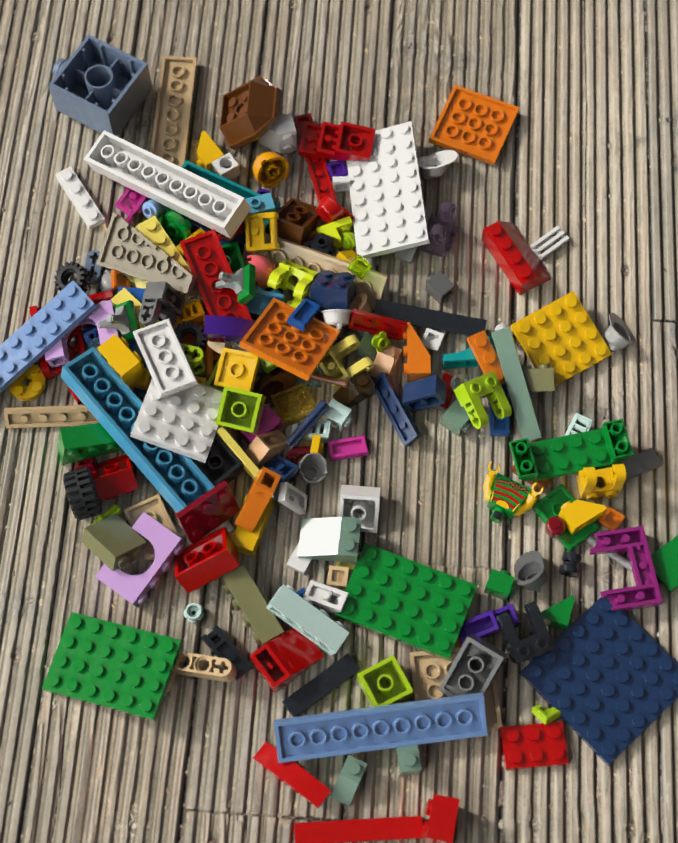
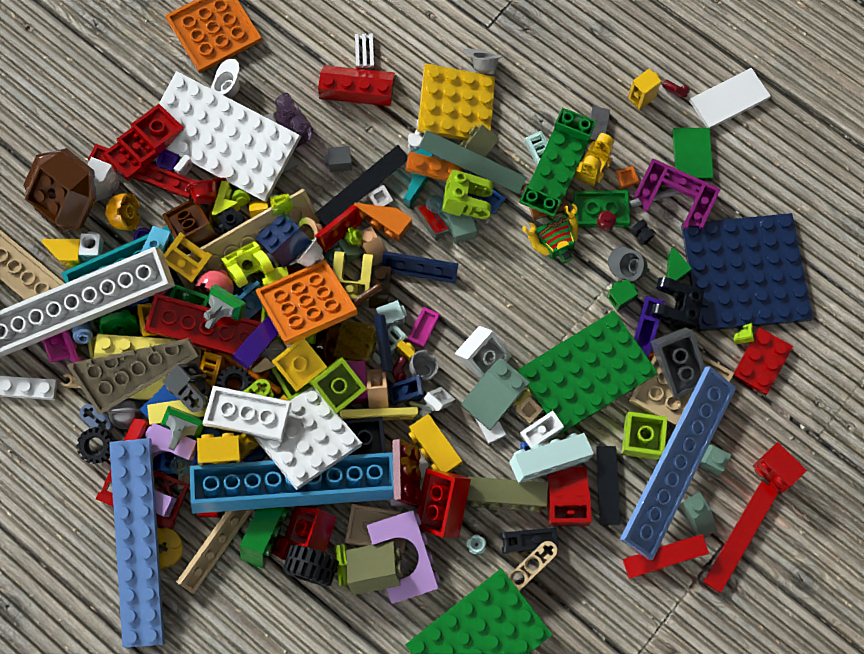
camera: 55 degrees left, 5 degrees up
(118, 279) = (132, 406): orange tile -> none
(257, 499) = (424, 424): orange slope -> none
(303, 314) = (290, 276): blue tile -> none
(424, 393) = (426, 235): dark blue brick -> none
(580, 514) = (611, 195): yellow slope -> none

